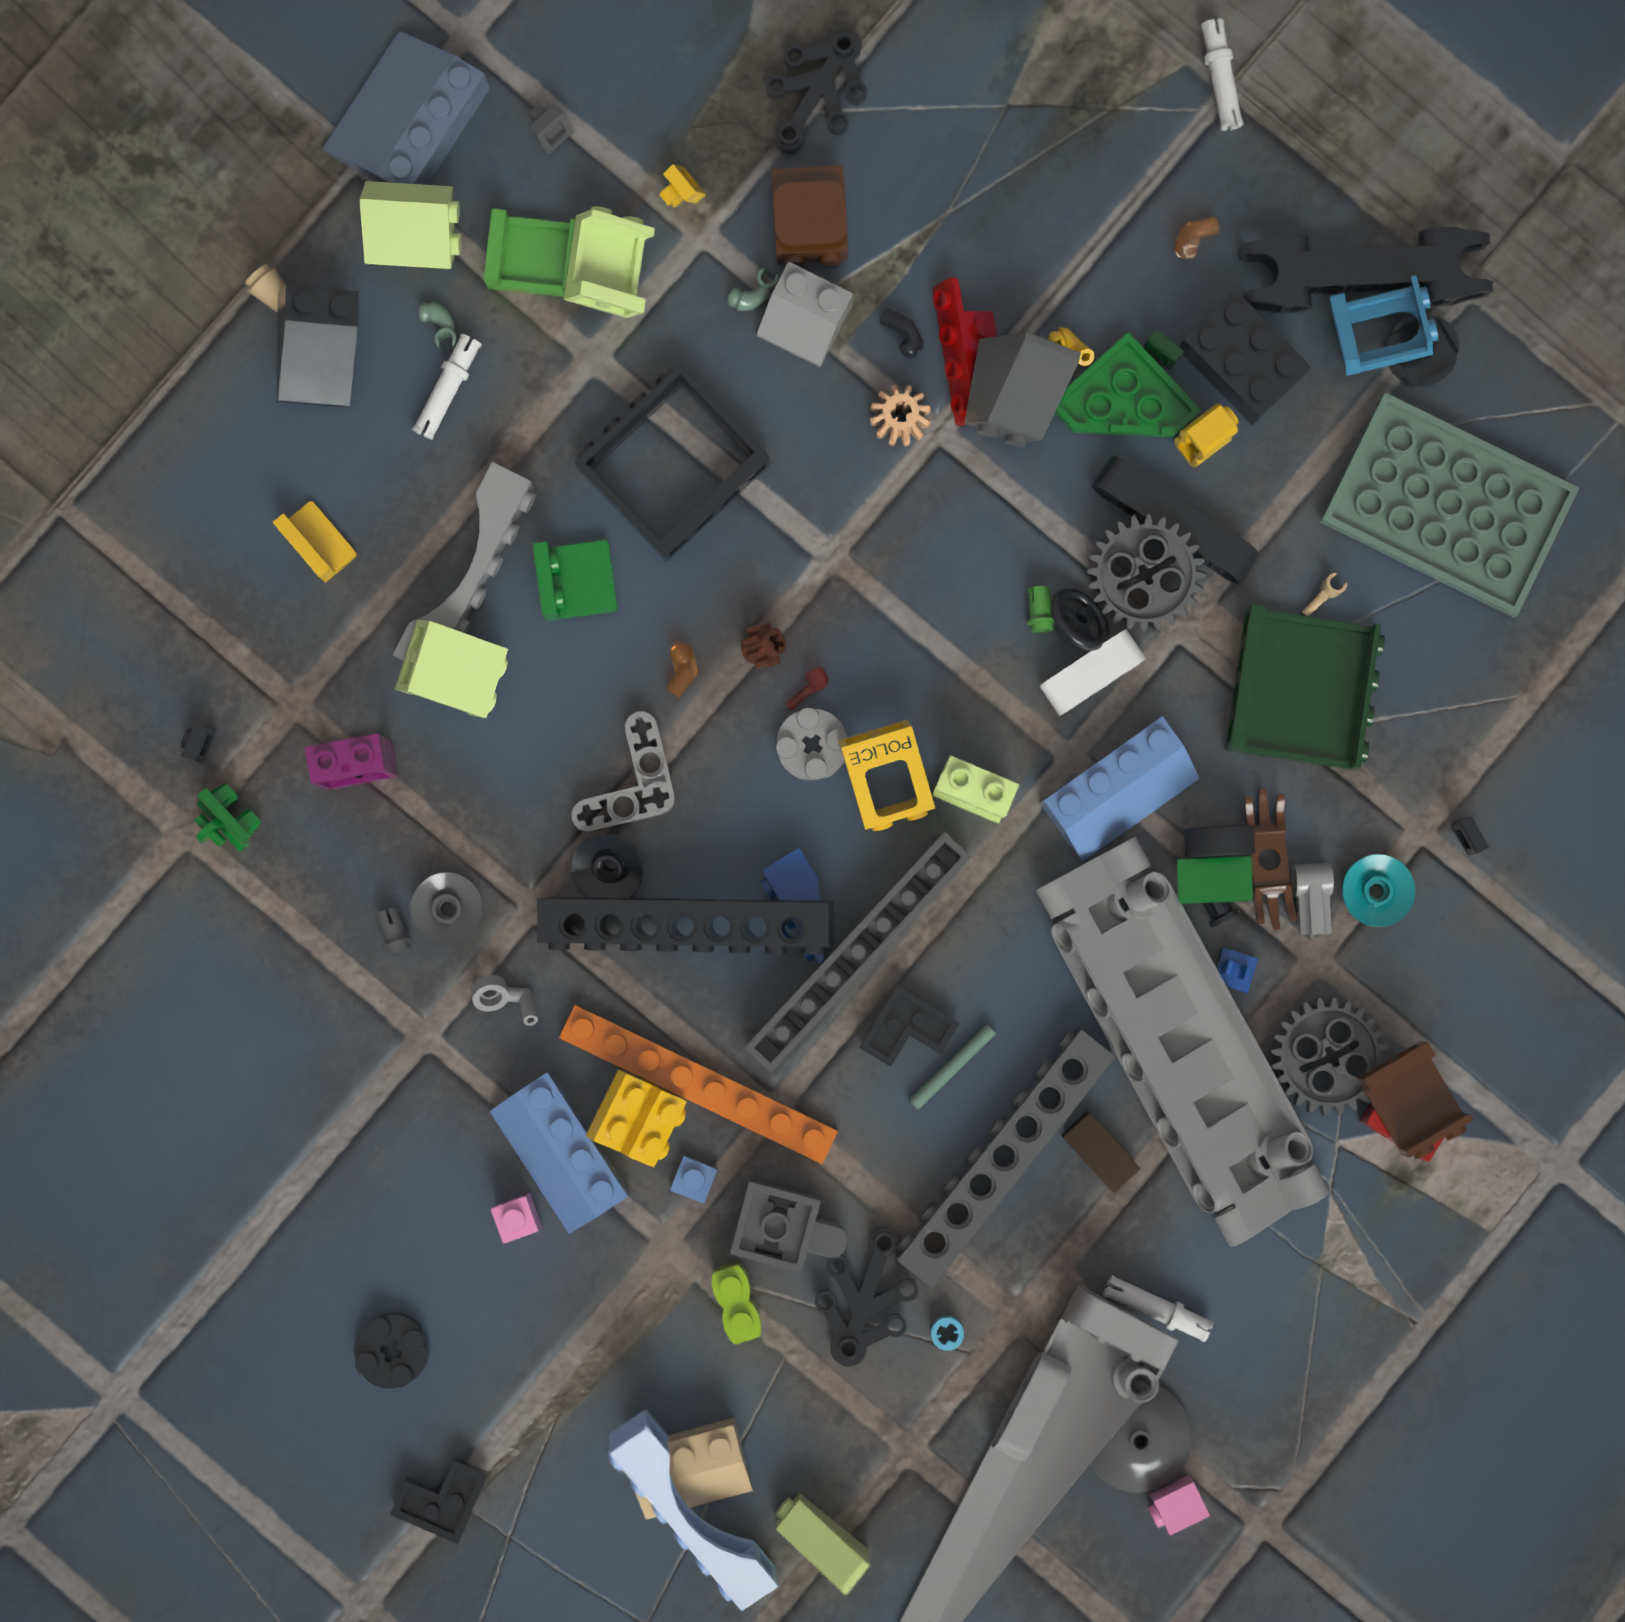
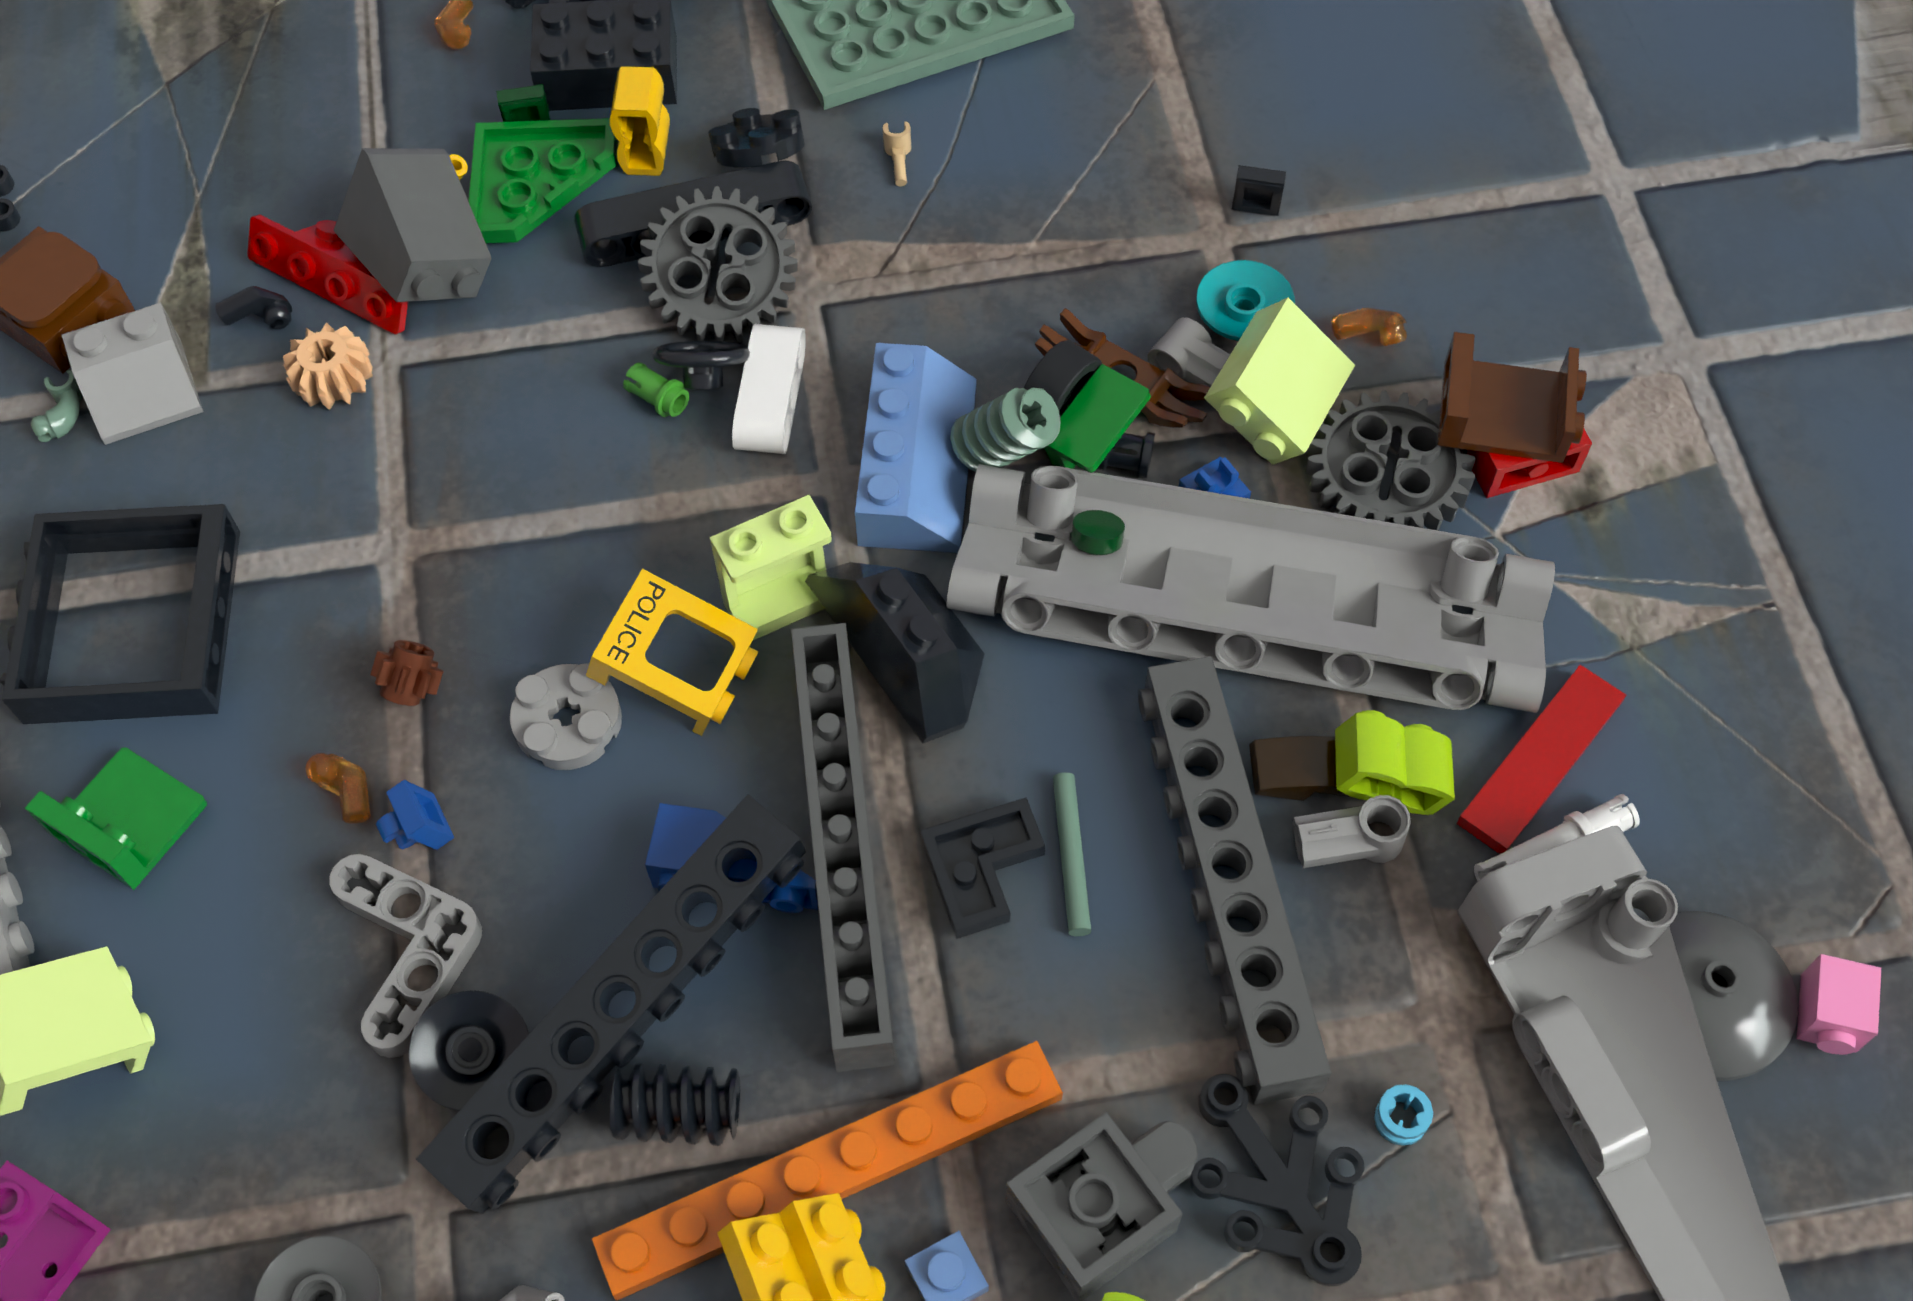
camera: 45 degrees left, 25 degrees down
(664, 990) = (675, 1105): none -> black piece
(695, 727) = (414, 818): none -> blue tile
(817, 681) = (503, 654): clear red hand -> none
(999, 884) = (906, 641): none -> black wedge
(1073, 1198) = (1346, 834): none -> light grey piece
(1133, 1195) = (1388, 759): none -> lime brick
(1148, 933) = (1097, 532): none -> dark green tile
(1164, 836) = (1006, 428): none -> sand green piece
(1207, 1266) = (1541, 760): none -> red tile
(1268, 498) = (756, 135): none -> black plate
(1304, 689) = (975, 229): dark green panel -> none
(1327, 959) = (1280, 382): none -> yellowish green brick
(1429, 972) = (1368, 320): none -> clear orange arm

